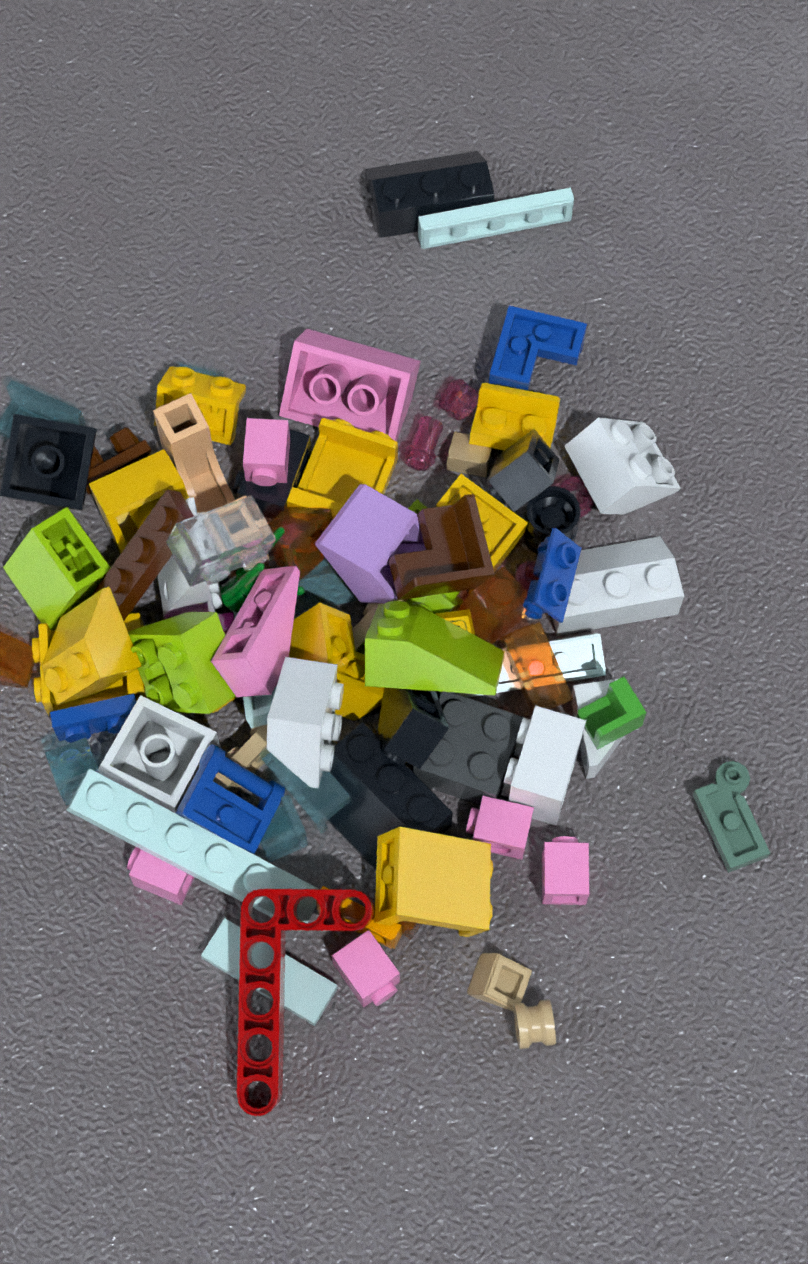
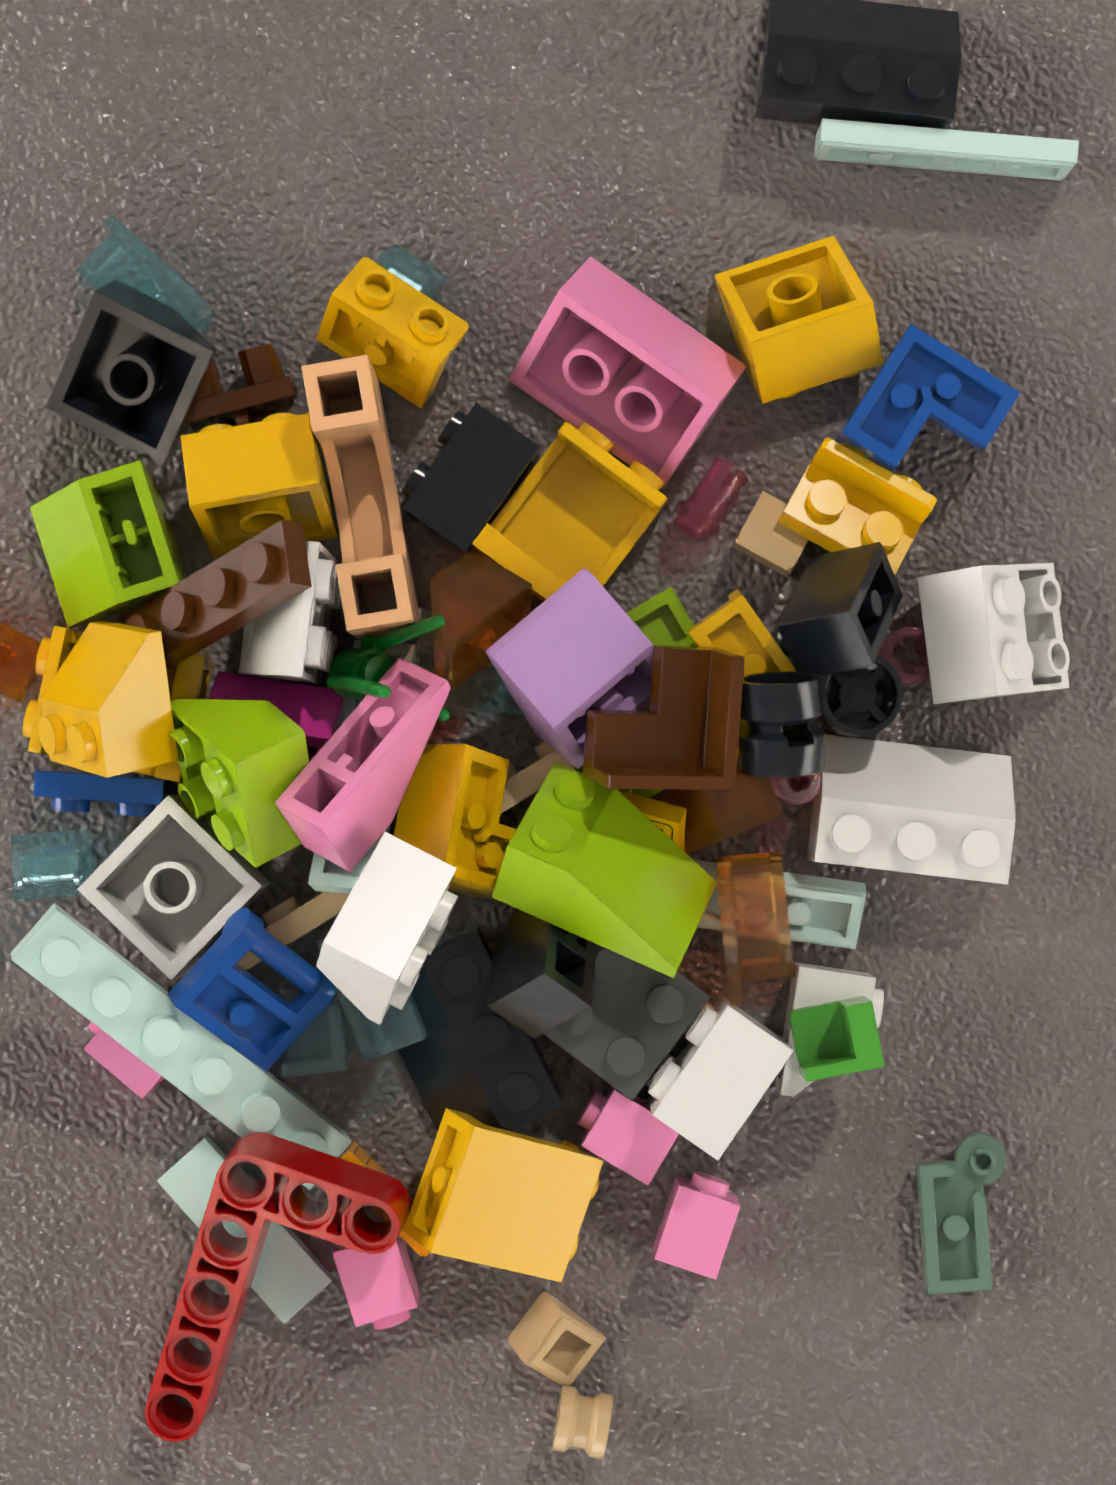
camera: 15 degrees right, 20 degrees up
(221, 541) = (337, 639): clear brick -> none
(266, 451) = (461, 465): bright pink brick -> none
(445, 330) = (800, 319): none -> yellow slope
(458, 399) = (785, 445): clear pink bush -> none
(509, 533) = (781, 725): none -> black wheel
(556, 572) = (811, 830): blue hinge -> none

